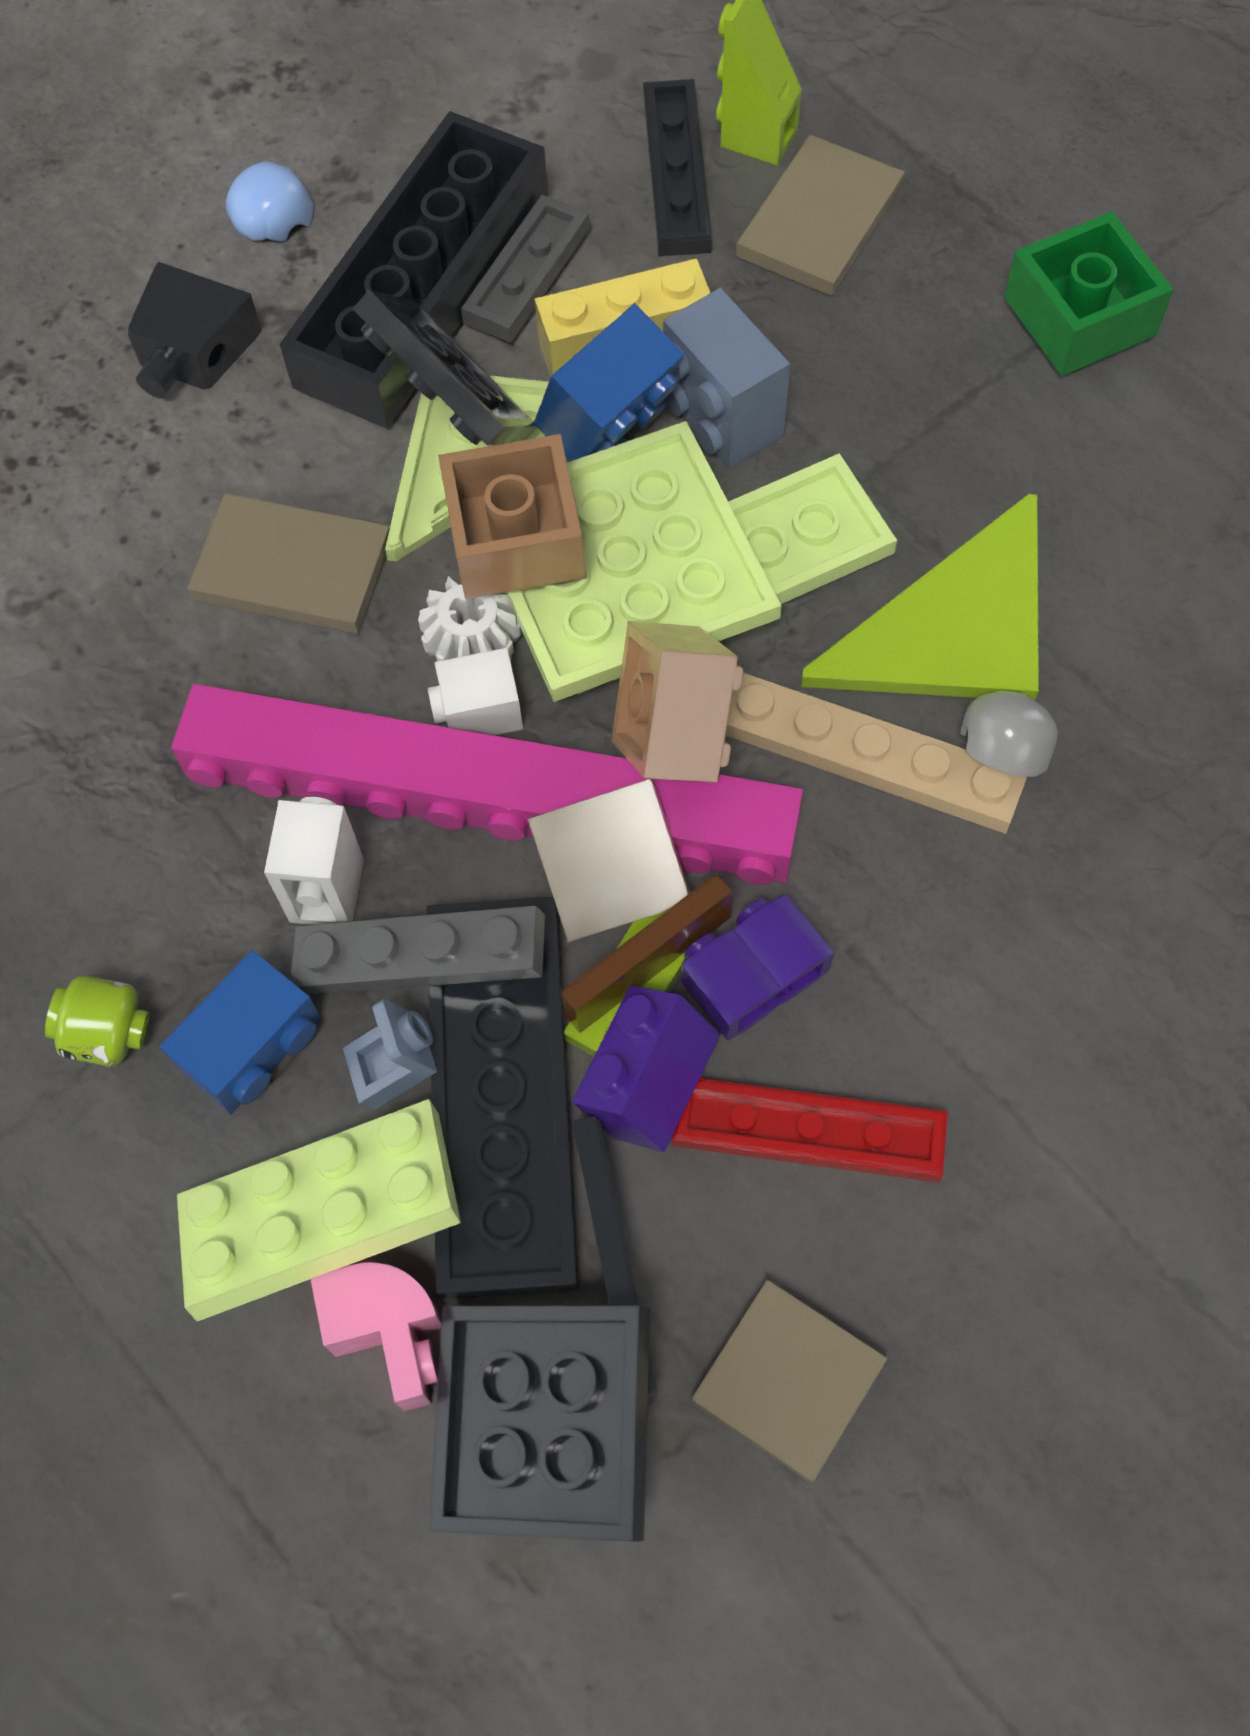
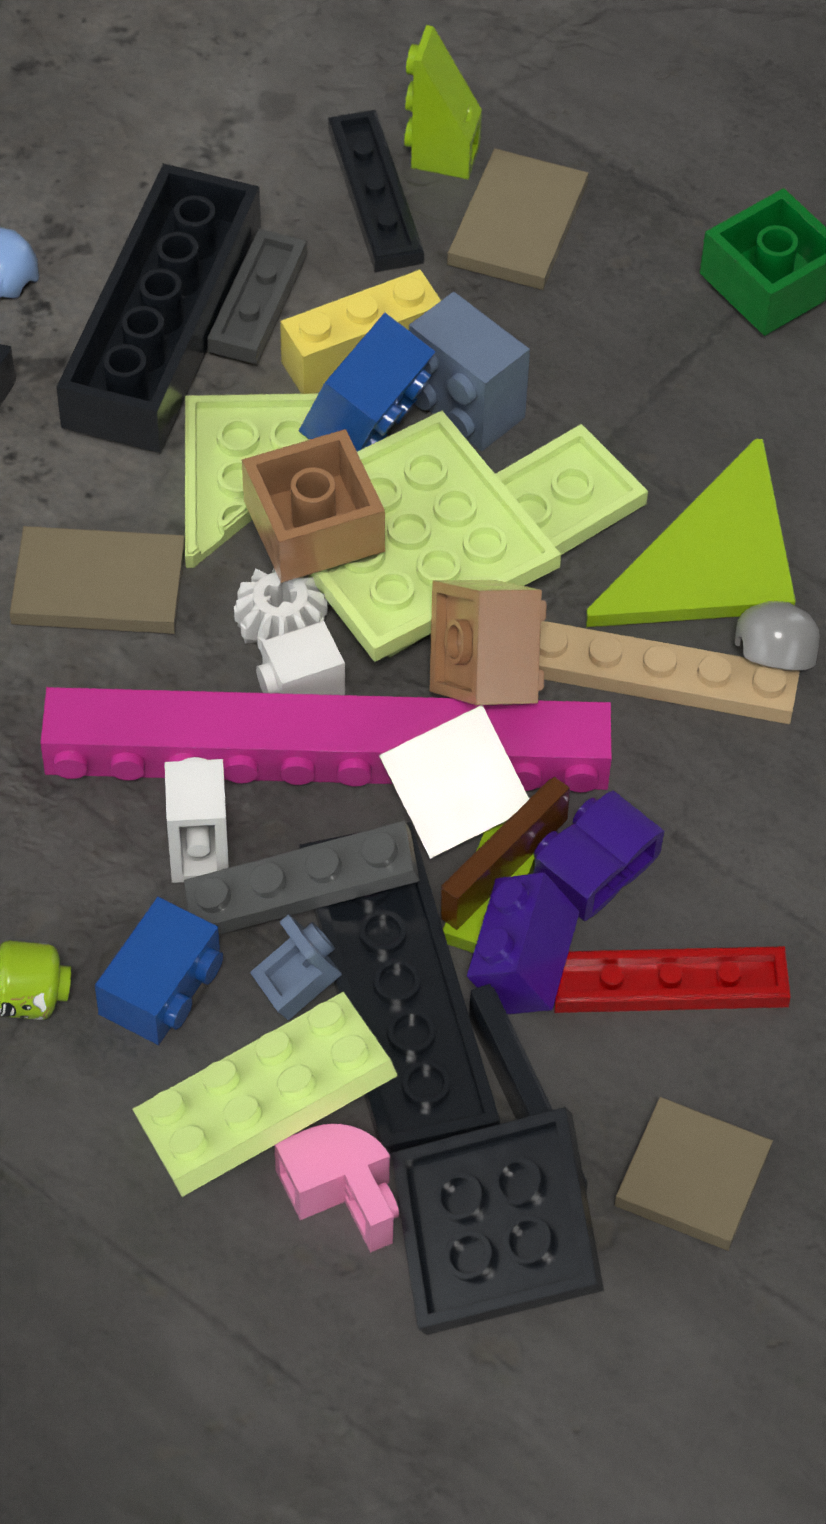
camera: 15 degrees left, 10 degrees down
(443, 369) = (226, 390): black plate -> none

